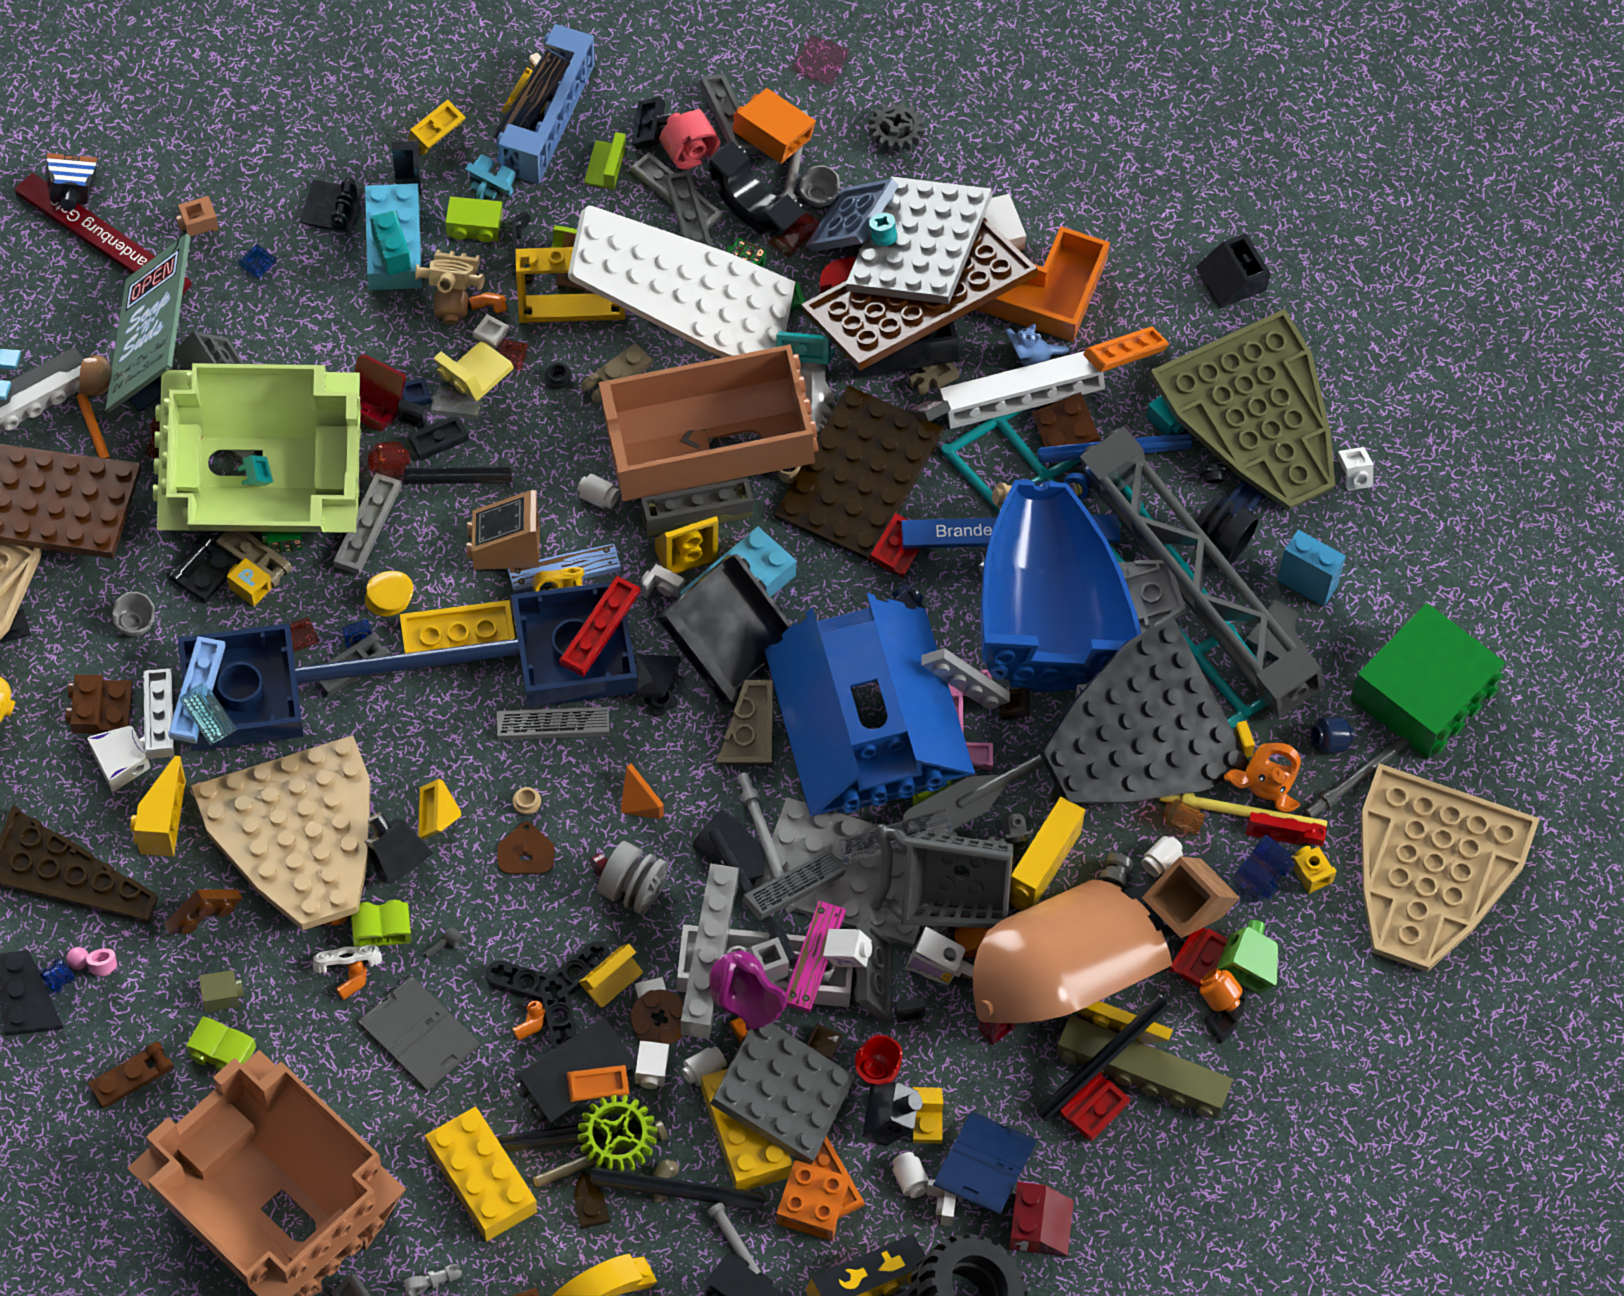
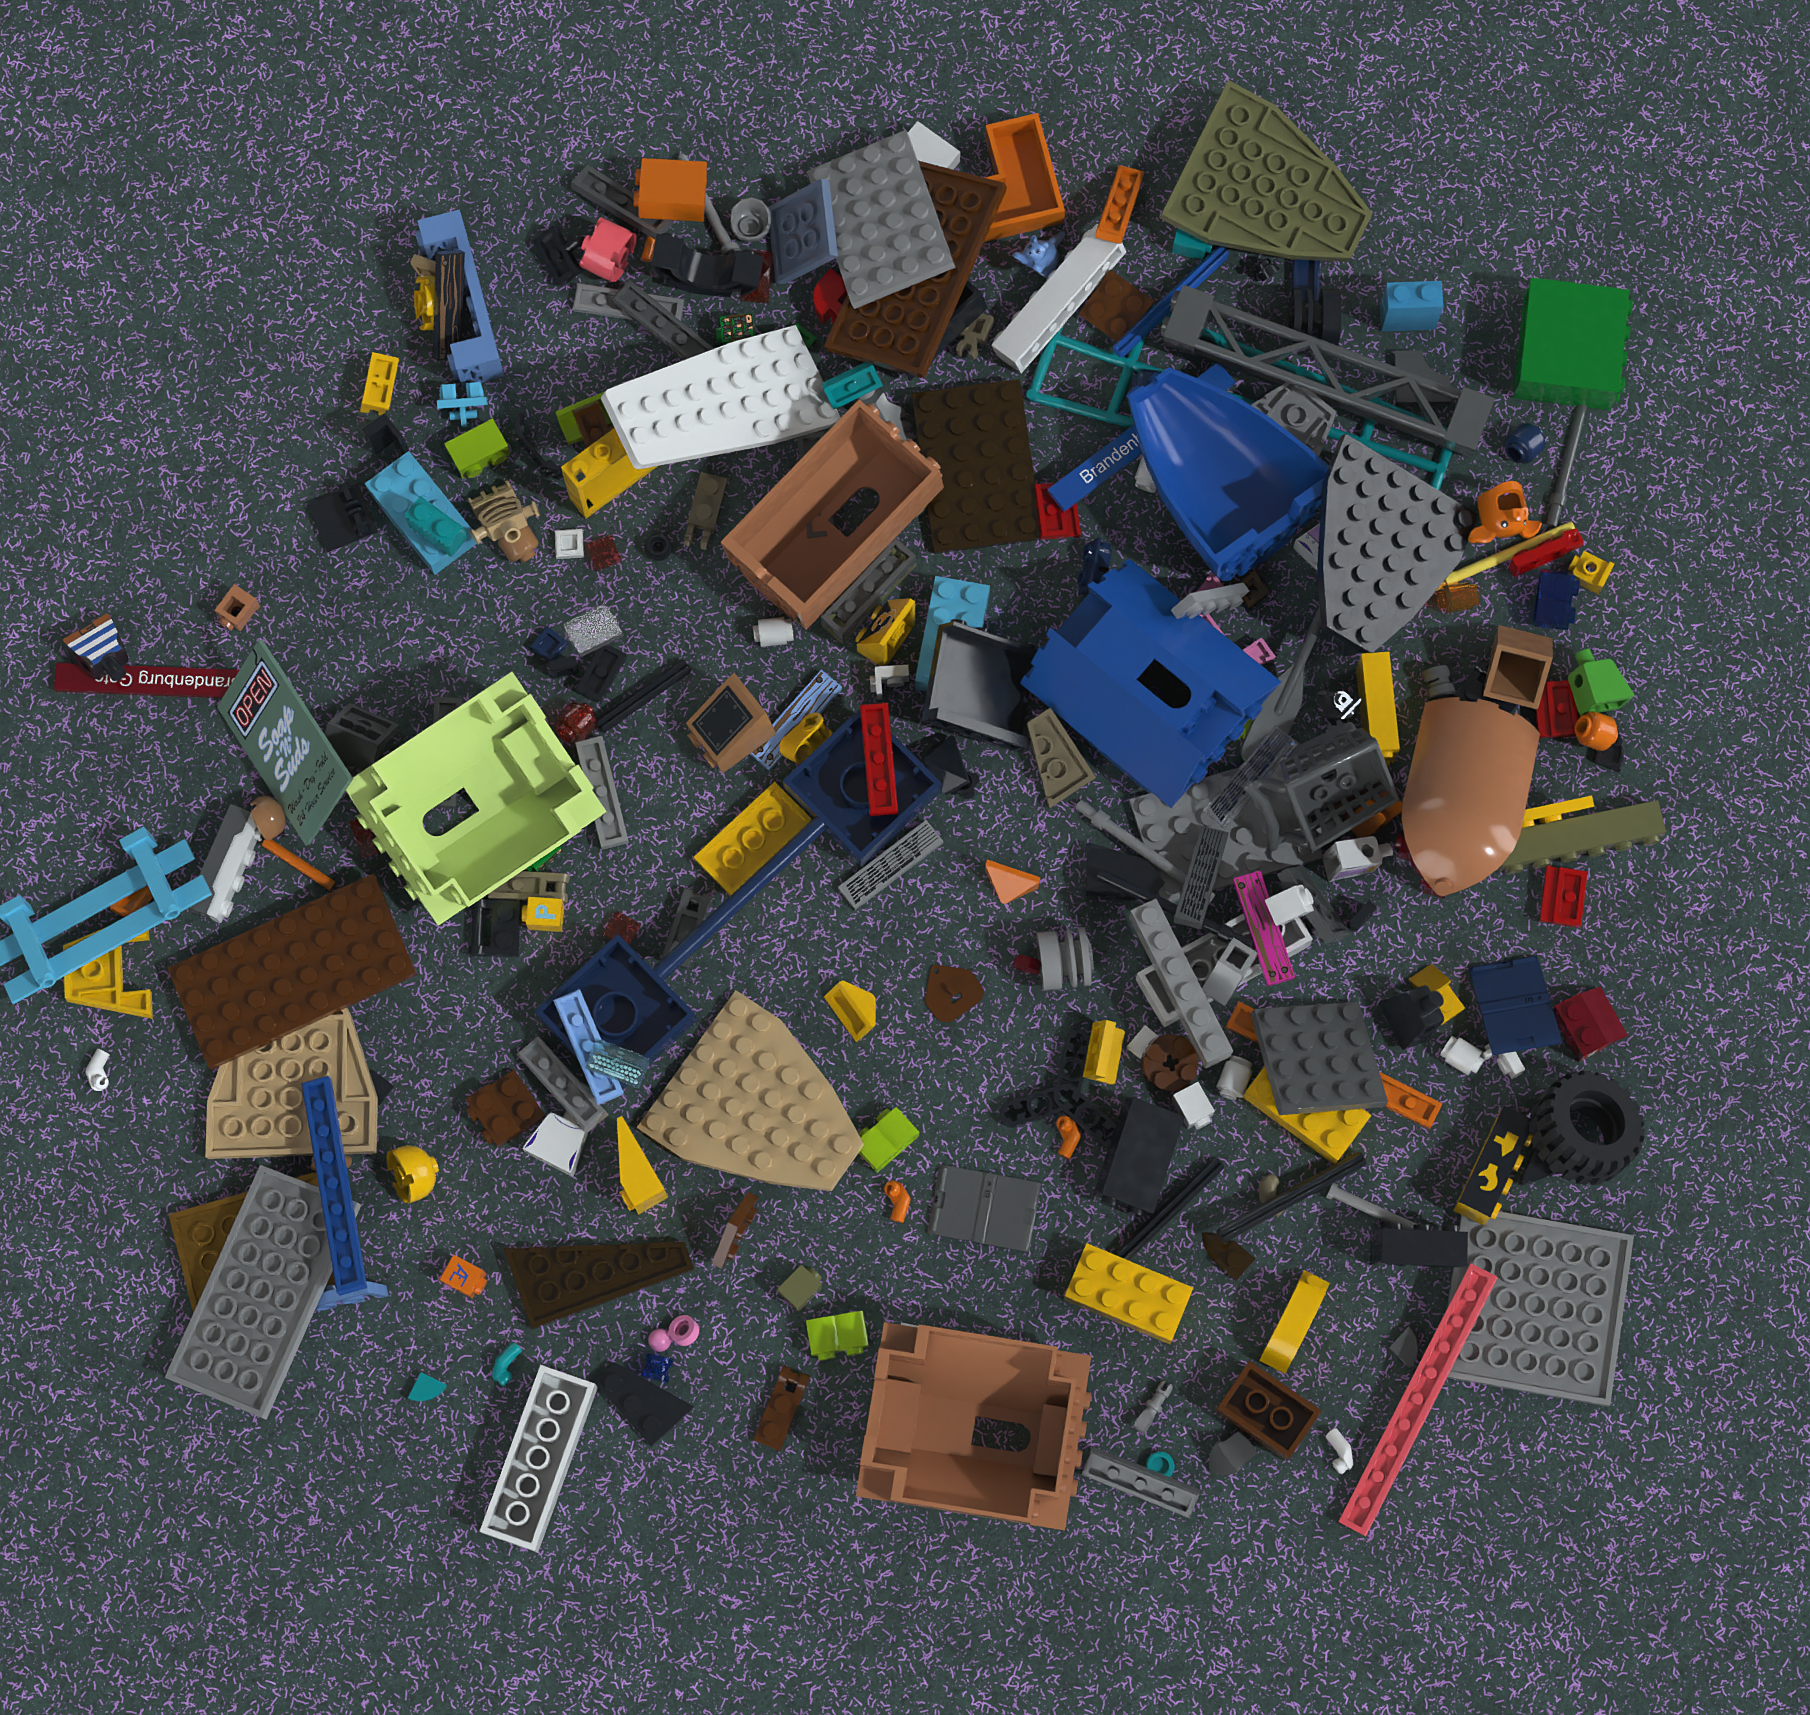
camera: 30 degrees left, 15 degrees up
(132, 606) = (467, 1001): light grey hair -> none
(257, 261) = (318, 613): clear blue tile -> none
(257, 471) = (476, 811): teal tile -> none
(331, 957) = (866, 1197): white piece -> none
(356, 632) = (670, 897): clear blue tile -> none
(379, 392) = (527, 663): dark red bracket -> none
(388, 593) = (667, 843): yellow piece -> none
(394, 848) = (851, 1068): black torso -> none
(451, 937) = (950, 1108): dark grey hand -> none
(475, 371) = (588, 591): light yellow bracket -> none
(487, 299) = (549, 513): orange arm -> none
(526, 801) = (921, 948): tan plate -> none
(582, 1163) = (1238, 1158): dark tan bar -> none
(597, 1083) = (1168, 1155): orange tile -> none
(606, 162) = (547, 318): lime panel -> none
(626, 1140) = (1213, 1173): lime gear -> none
(744, 990) = (1238, 999): magenta piece -> none
(812, 1200) = (1406, 1131): orange bracket -> none
(821, 59) = (657, 93): clear pink piece -> none
(825, 1041) = (1312, 990): dark brown tile -> none
(878, 1060) = (1371, 978): red hair -> none
(883, 229) = (853, 237): teal wheel -> none
(896, 127) = (778, 107): dark grey gear -> none
(930, 409) = (996, 370): dark grey tile -> none
(1000, 493) = (1113, 408): tan plate -> none
(1078, 484) = (1164, 357): blue tile -> none
(1103, 1057) = (1551, 854): black axle -> none
(1162, 856) = (1465, 643): white brick -> none
(1234, 271) = (1153, 68): black slope -> none
(1244, 738) = (1458, 493): yellow tile -> none
(1357, 468) = (1377, 183): white bracket -> none
(1434, 864) = (1680, 501): tan piece -> none

